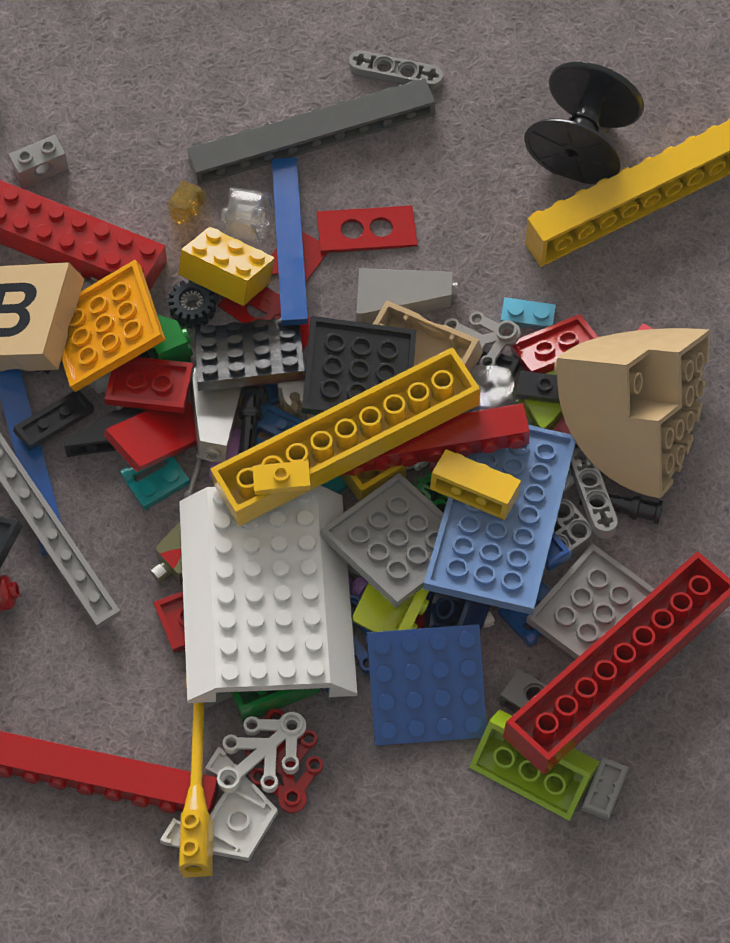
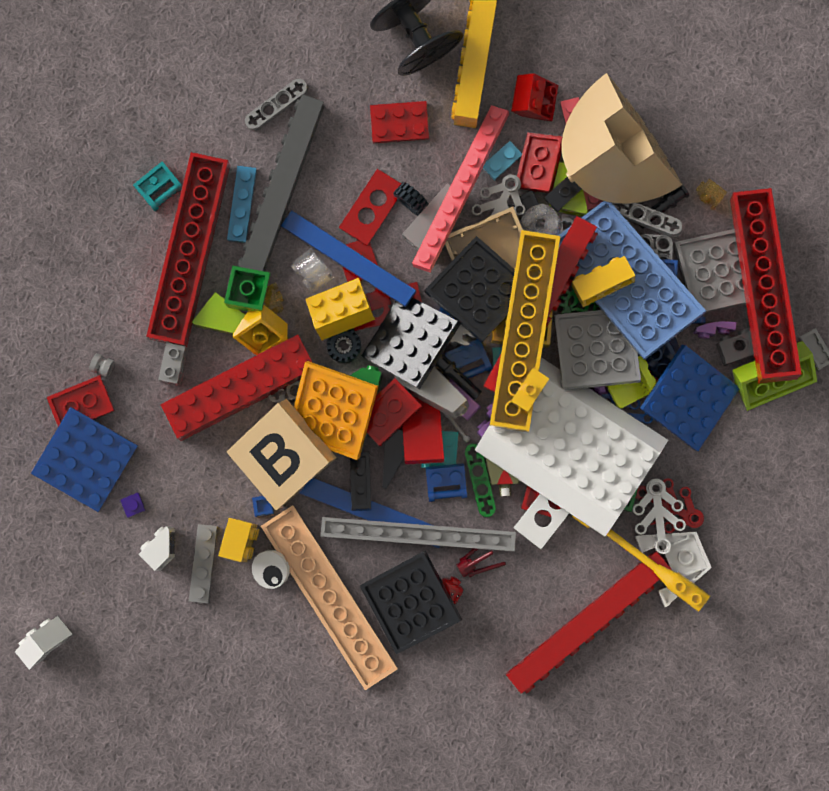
camera: 50 degrees left, 20 degrees up
(43, 595) = (467, 566): none -> dark red plant
(127, 172) = (218, 316): none -> lime slope
(128, 500) = (446, 476): none -> blue plate
(135, 627) = (535, 533): none -> white piece
(141, 208) = (261, 330): none -> yellow slope
(147, 538) = (476, 481): none -> green beam
(169, 157) = (246, 289): none -> green slope
(171, 92) = (188, 249): none -> red brick
(217, 19) = (154, 181): none -> teal plate
(265, 109) = (241, 204): none -> dark azure plate
(405, 249) = (410, 198): none -> black bush
(456, 285) = (460, 189): none -> coral plate
(480, 191) = (399, 122): none -> red plate
(527, 653) = (707, 330): none -> medium lavender slope
(624, 294) = (534, 97): none -> red slope
(680, 542) = (710, 193): none -> clear yellow brick

